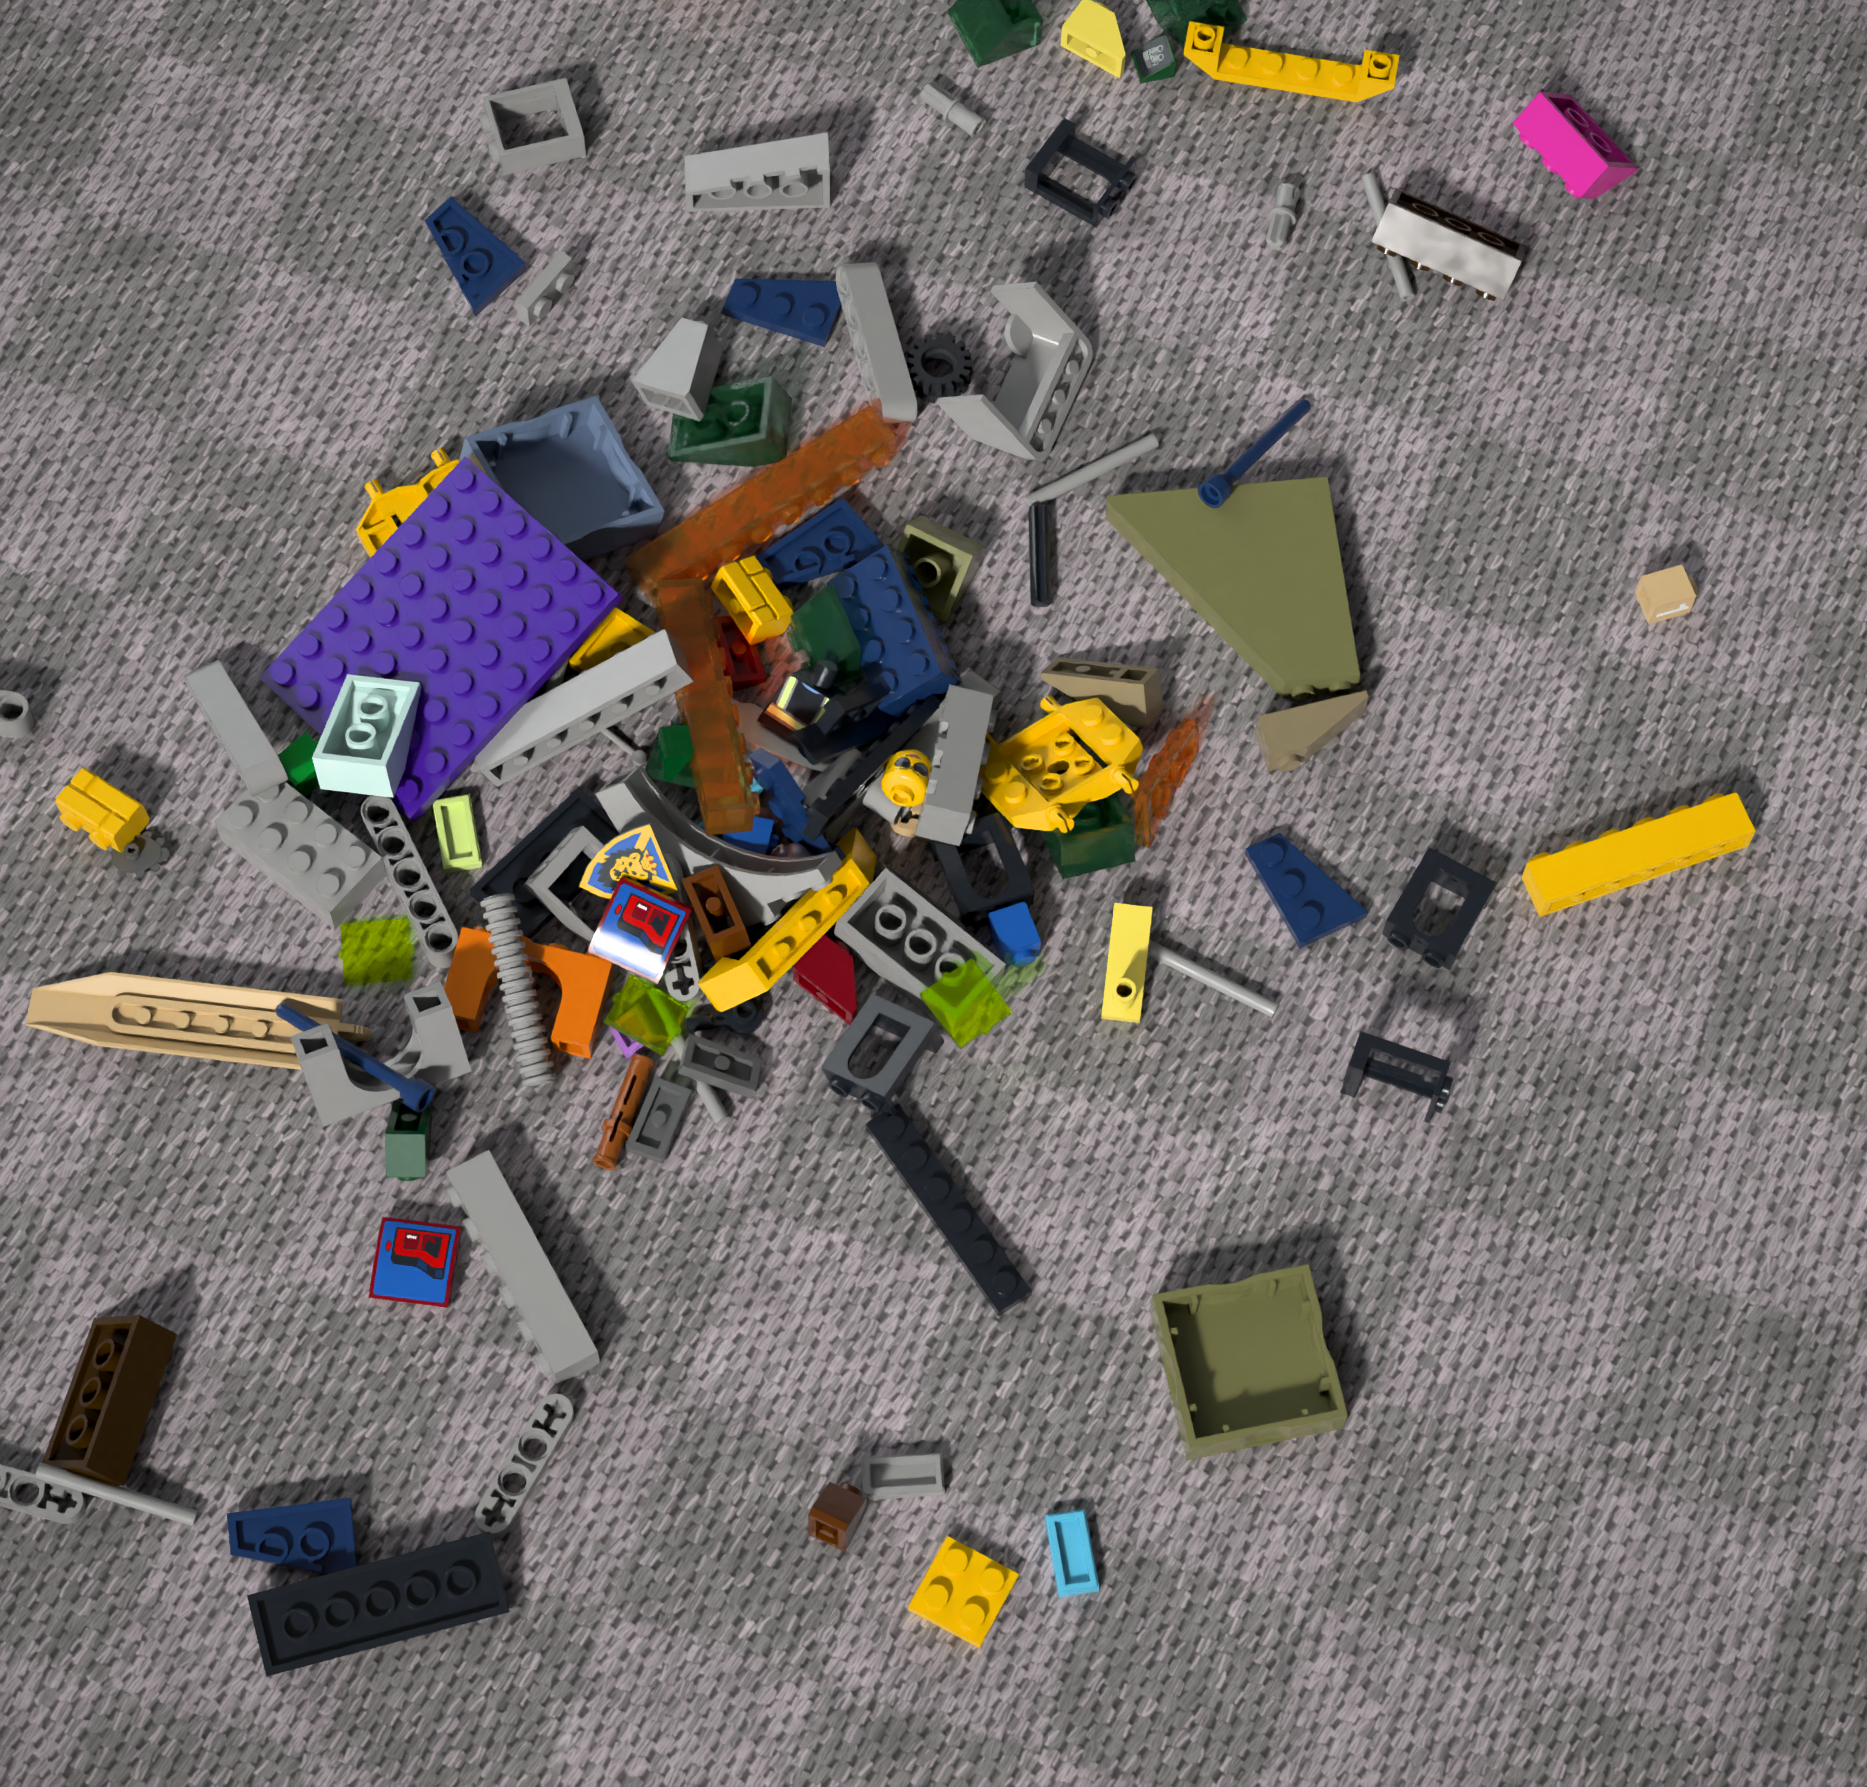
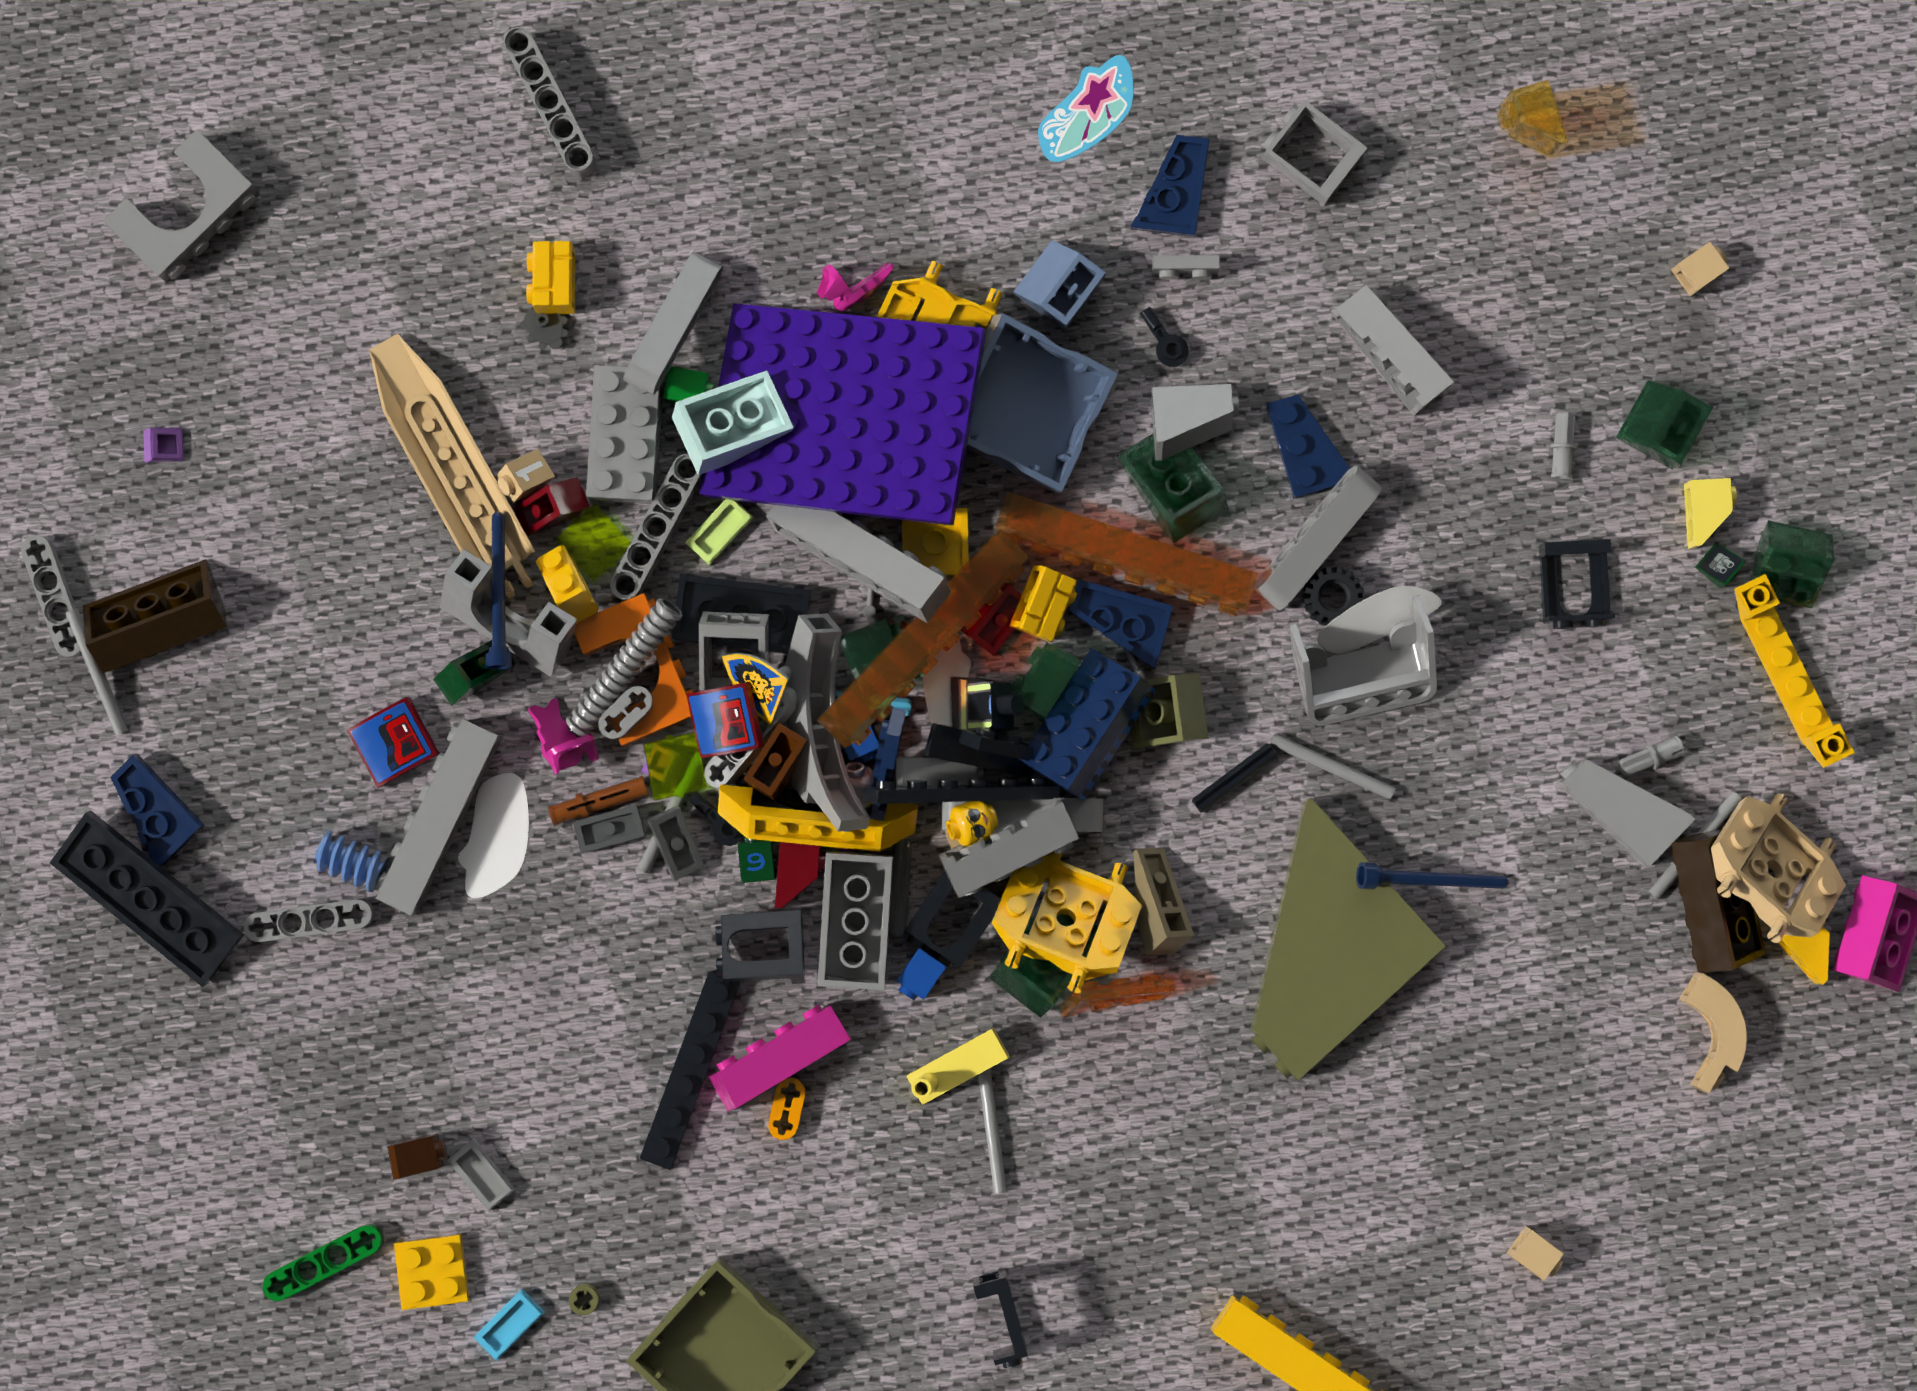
camera: 60 degrees right, 20 degrees up
(264, 959) = (524, 476): none -> tan brick
(312, 956) = (551, 506): none -> dark red slope
(330, 572) = (834, 287): none -> dark pink hair
(342, 280) = (1089, 111): none -> sticker
(382, 986) = (567, 583): none -> yellow brick
(475, 393) = (1060, 284): none -> sand blue slope
(498, 1378) = (349, 862): none -> medium blue piece
(542, 1111) = (558, 745): none -> dark pink hair
(570, 1013) = (631, 718): none -> light grey beam
(583, 1233) = (497, 835): none -> white sticker
(609, 351) = (1171, 348): none -> black plate
(674, 749) = (866, 649): dark green slope -> none
(794, 1006) = (756, 860): none -> dark green brick
(878, 1692) = (322, 1260): none -> green beam
(966, 1003) = (833, 985): clear neon green piece -> none
(984, 346) = (1374, 618): none -> white sticker
(997, 1115) = (778, 1058): none -> dark pink wedge
(1045, 1151) = (779, 1106): none -> light orange beam
(1089, 1468) = (574, 1295): none -> olive bush
(1301, 731) = (1225, 1065): dark tan slope -> none
(1301, 891) = (1105, 1148): dark blue wing -> none
(1313, 266) = (1627, 812): none -> light grey slope
(1448, 178) = (1763, 838): none -> tan piece
(1455, 877) = (1131, 1236): black panel -> none
(1542, 205) = (1810, 954): none -> yellow slope
(1569, 312) = (1726, 1029): none -> tan arch

